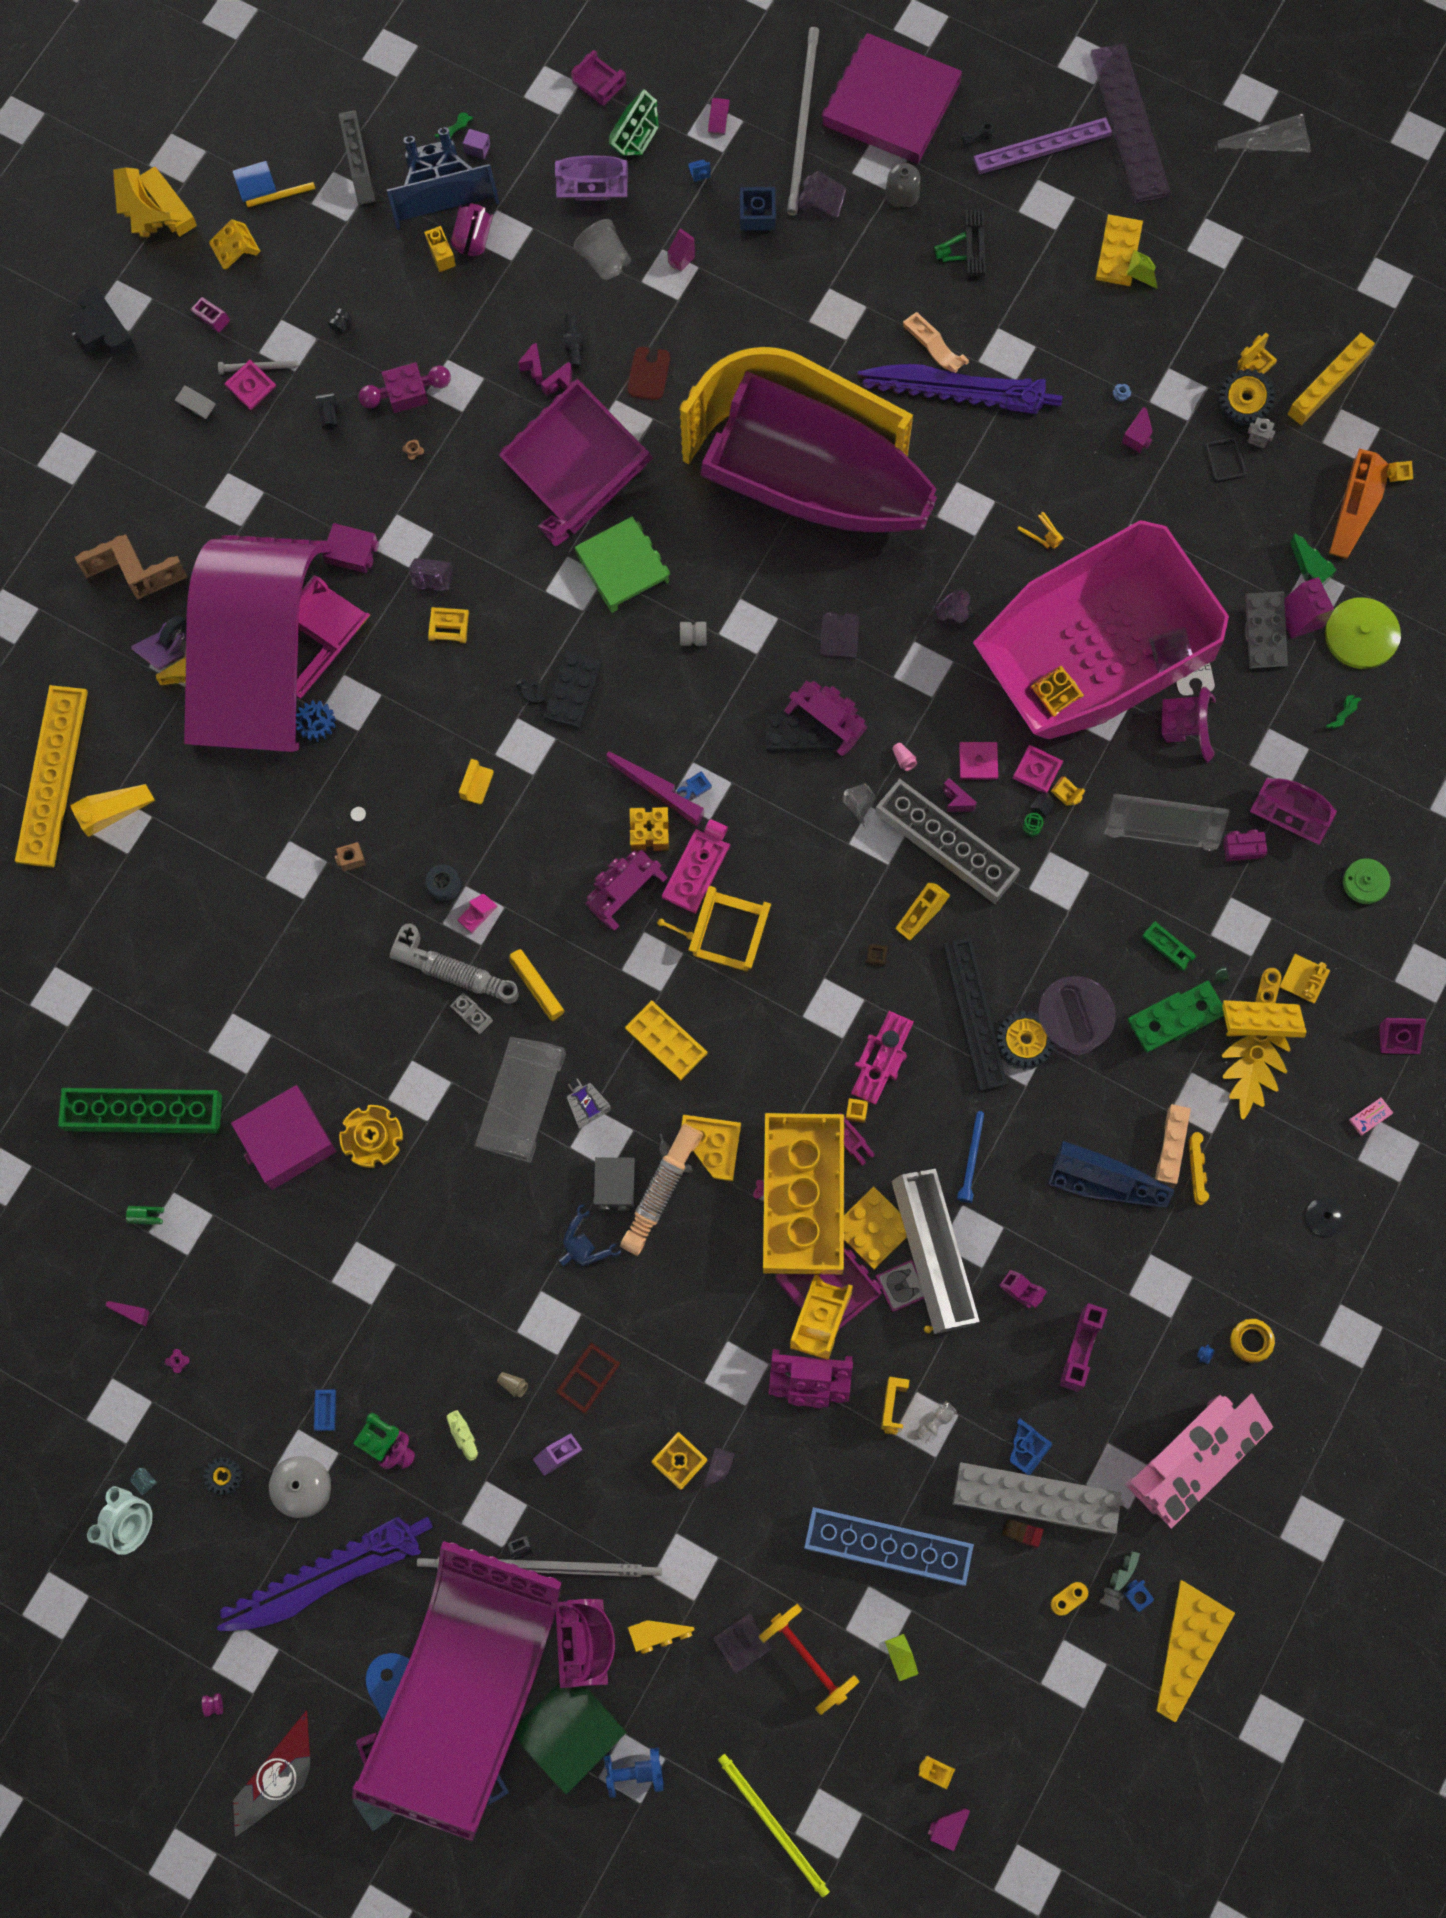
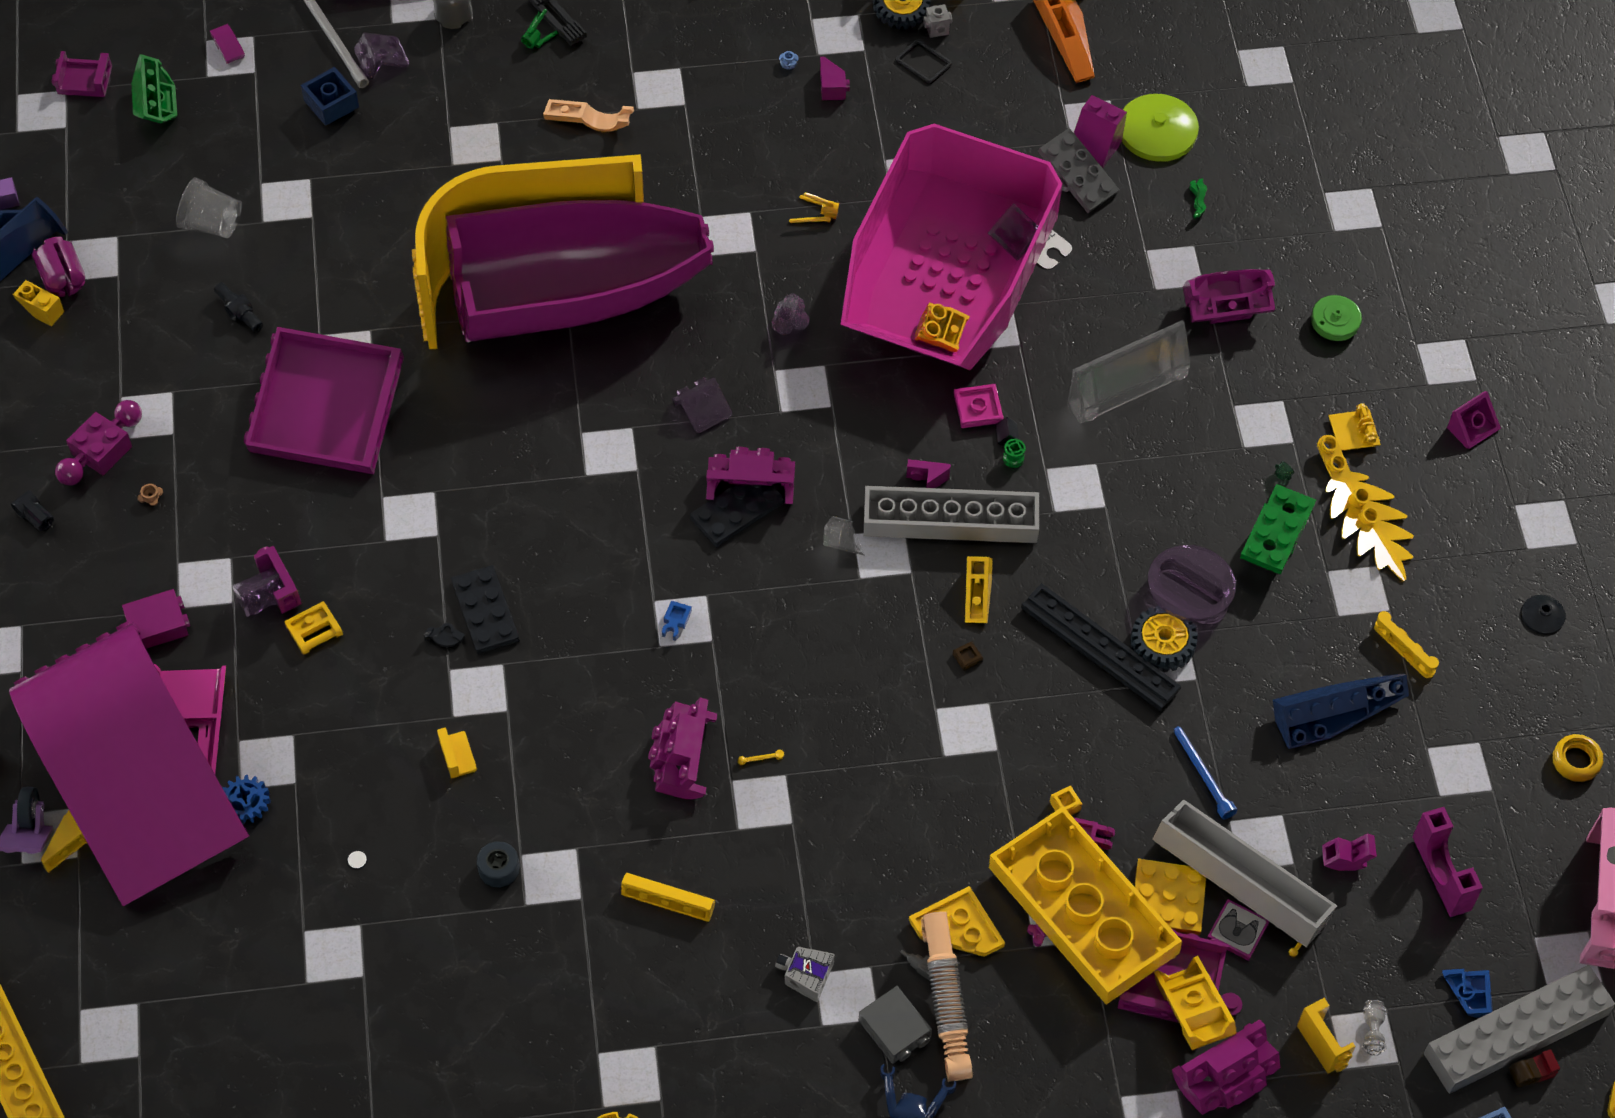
camera: 40 degrees left, 15 degrees down
(104, 809) = (81, 1027): yellow wedge -> none
(355, 862) = (383, 892): medium nougat brick -> none
(440, 967) = (575, 938): light grey piece -> none
(447, 589) = (288, 596): none -> magenta panel
(471, 1013) = (622, 967): light grey slope -> none
(477, 913) = (554, 871): dark pink slope -> none
(520, 1098) = (738, 1011): clear slope -> none
(531, 362) = (213, 347): magenta slope -> none
(554, 530) = (353, 479): magenta slope -> none
(561, 377) = (252, 346): magenta slope -> none
(591, 178) = (148, 156): medium lavender piece -> none
(621, 562) = (443, 469): bright green panel -> none
(640, 821) = (664, 682): yellow brick -> none
(648, 378) = (337, 298): clear red piece -> none
(659, 788) = (640, 642): magenta slope -> none
(666, 1040) = (836, 861): yellow plate -> none
(681, 250) = (285, 169): magenta slope -> none
(693, 634) = (567, 484): light grey wheel -> none
(695, 874) = (738, 698): dark pink hinge -> none
(700, 170) = (249, 96): blue bracket -> none
(714, 897) = (845, 711): yellow piece -> none
(852, 1333) = (1232, 1002): none -> magenta plate
(888, 1060) = (1058, 737): dark pink piece -> none
(904, 757) = (850, 470): bright pink cone -> none
(978, 760) = (919, 432): dark pink plate -> none
(1008, 393) = (692, 116): dark purple piece -> none
(1067, 792) = (1021, 407): yellow bracket -> none
(1168, 945) = (1218, 477): green plate -> none
(1173, 1145) = (1357, 620): light nougat arch -> none
(1188, 717) = (1075, 278): magenta piece -> none
(1205, 1354) = (1549, 798): blue plate -> none
(1245, 846) = (1211, 353): magenta brick -> none
(1264, 1019) = (1352, 481): yellow plate -> none
(1310, 561) = (1064, 95): green slope -> none
(1371, 1116) = (1507, 505): bright pink tile -> none

